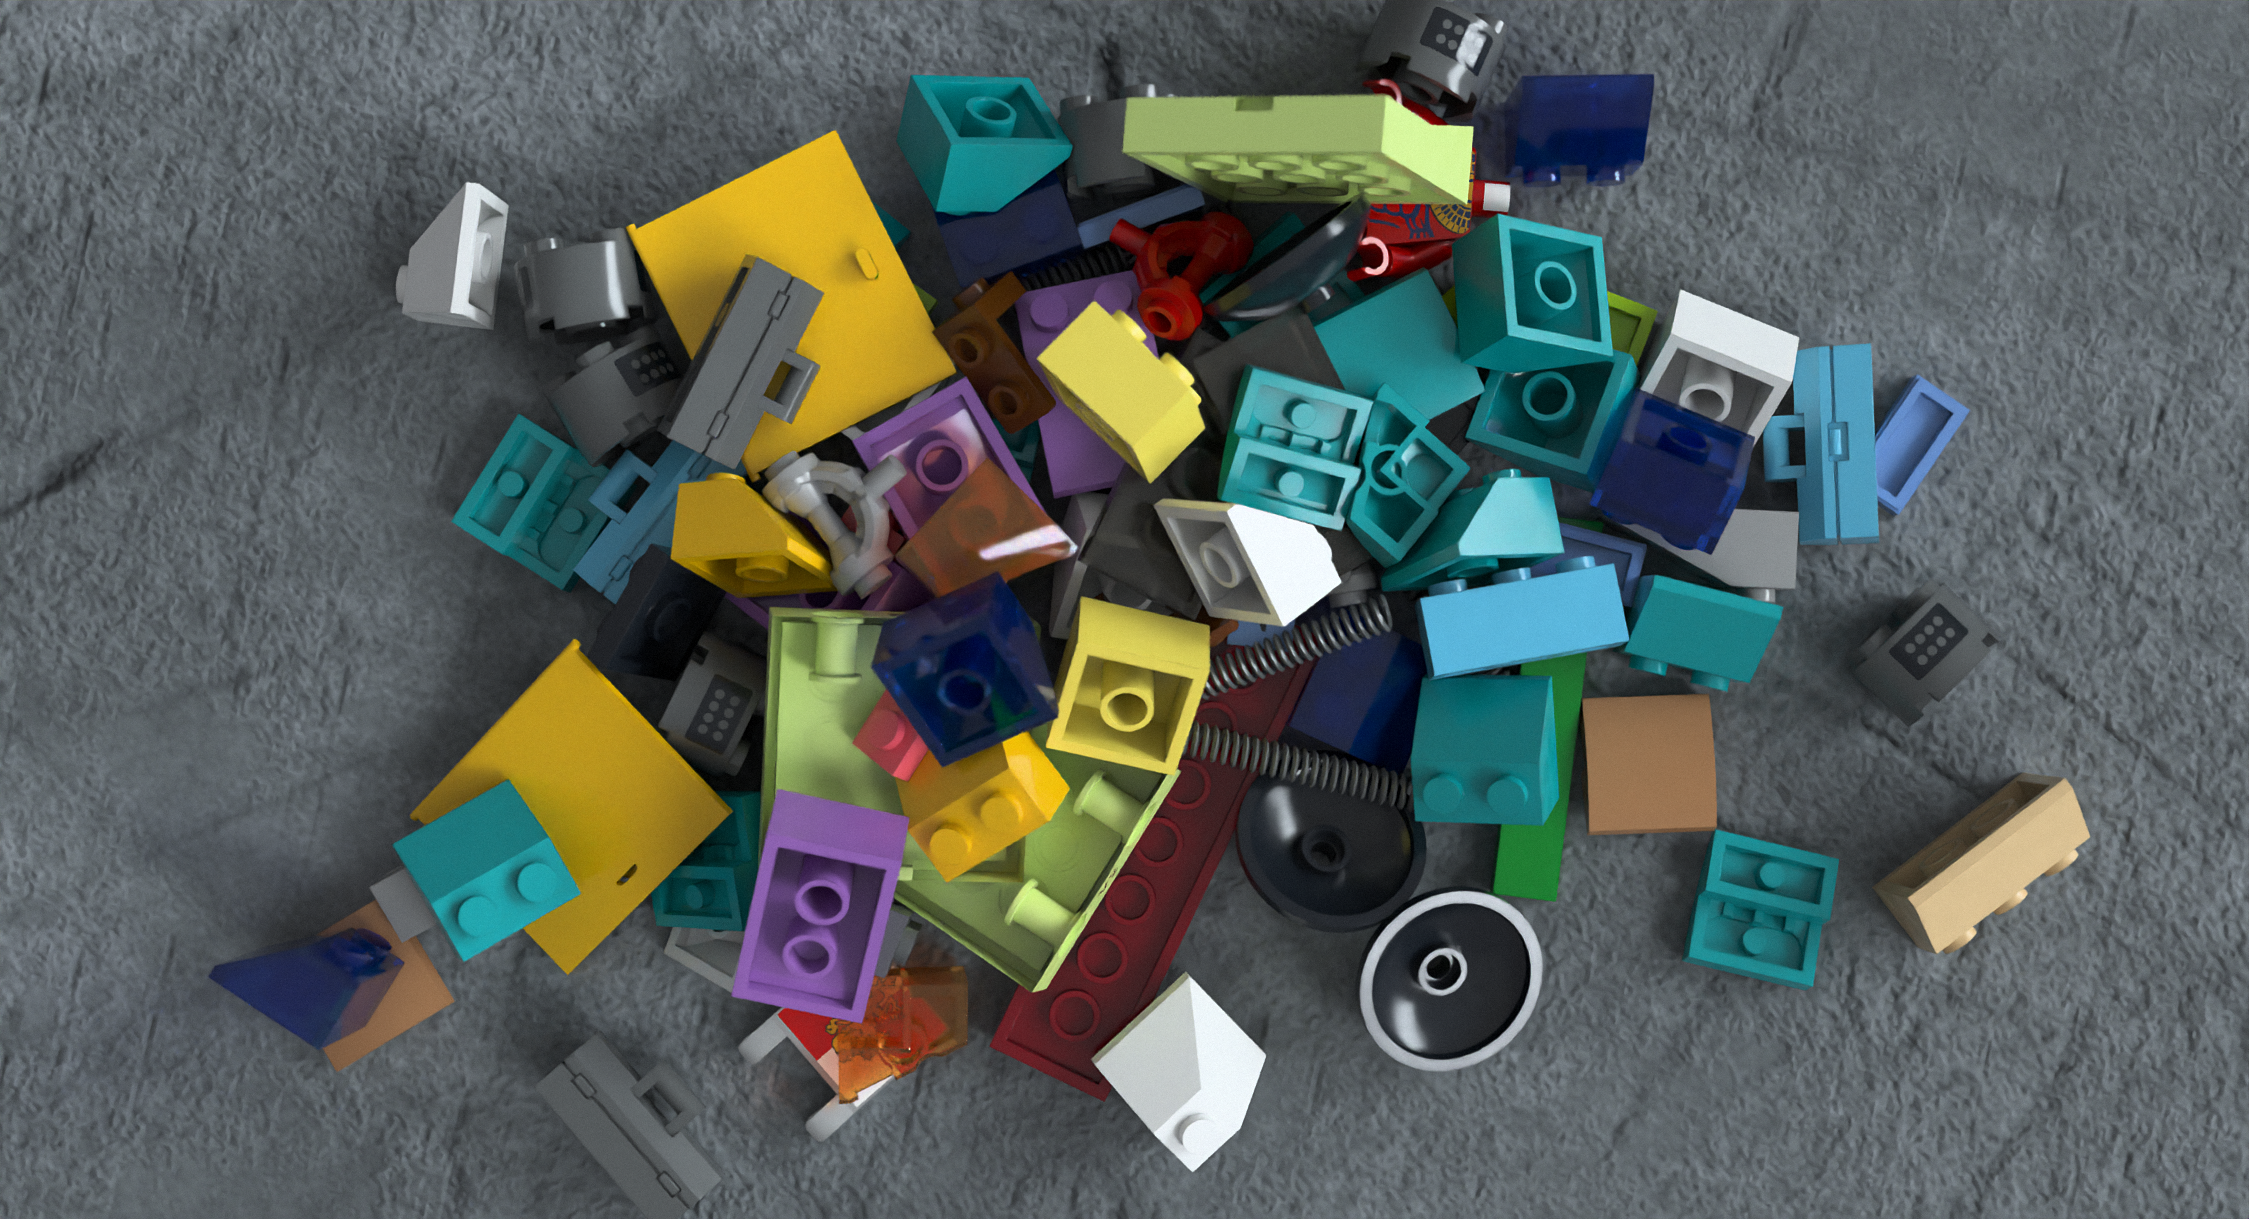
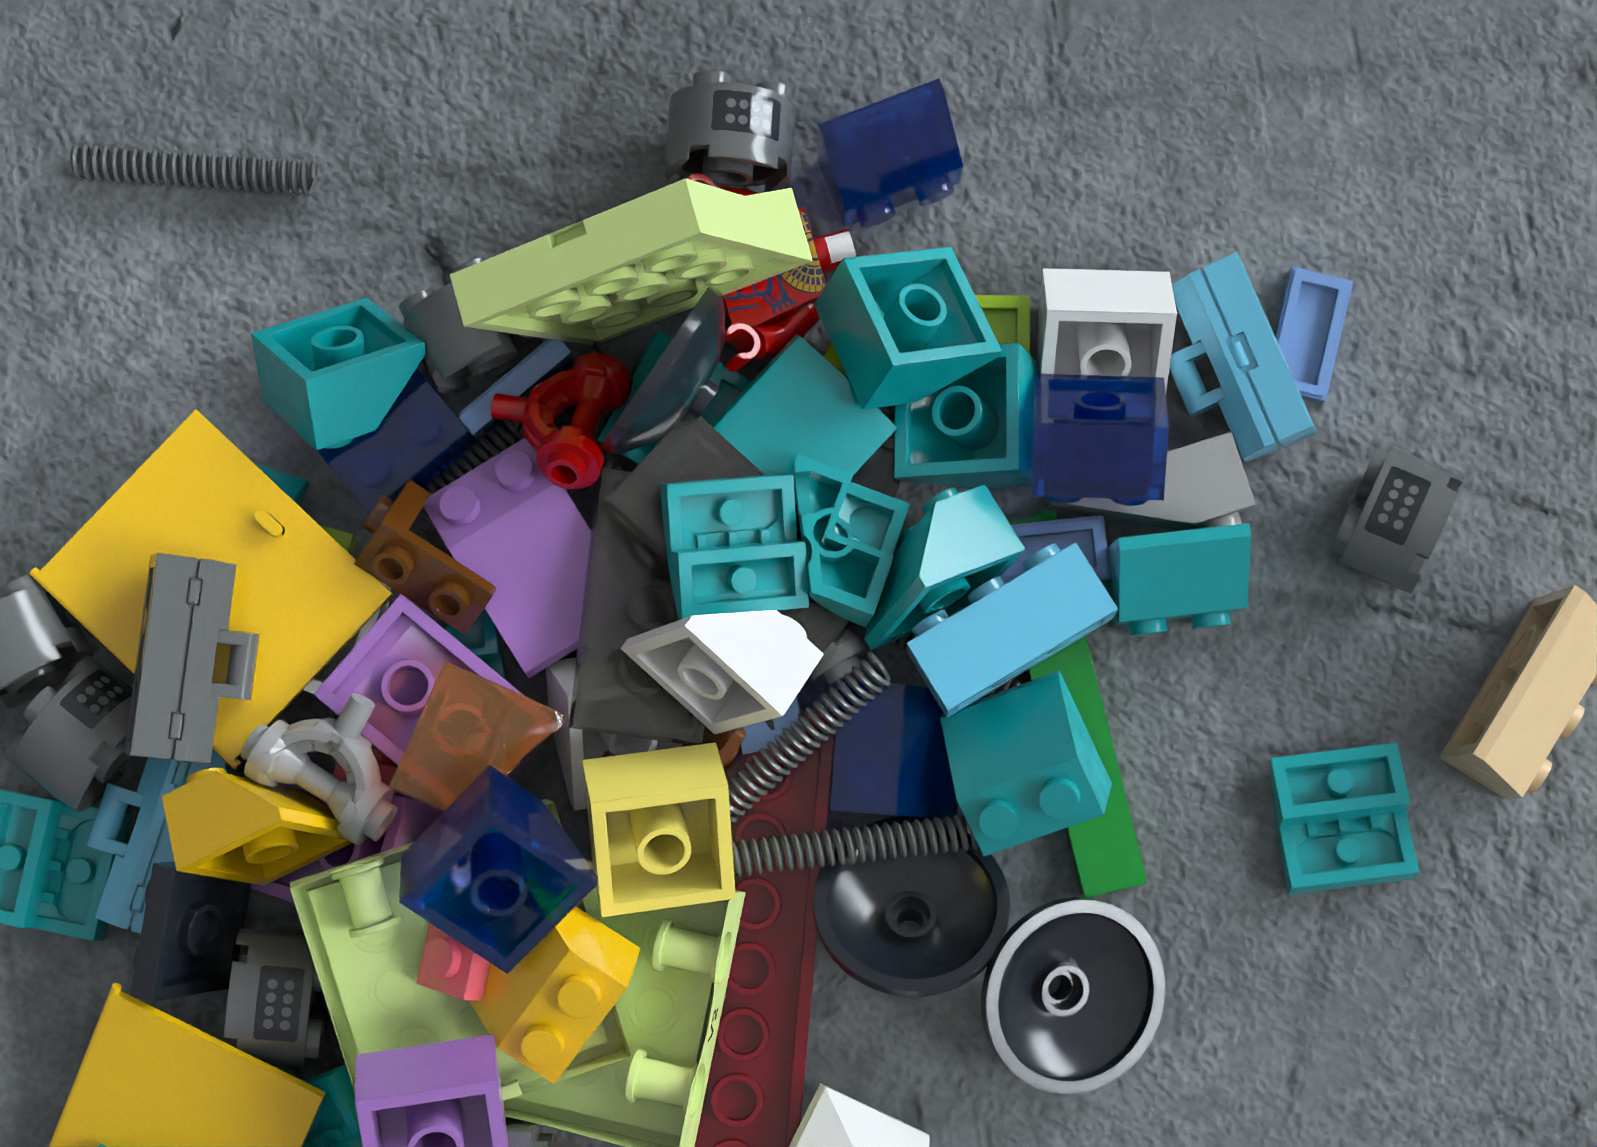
camera: 20 degrees left, 5 degrees down
(1123, 390) = (550, 549): light yellow brick -> none
(1648, 764) = (1184, 720): medium nougat slope -> none

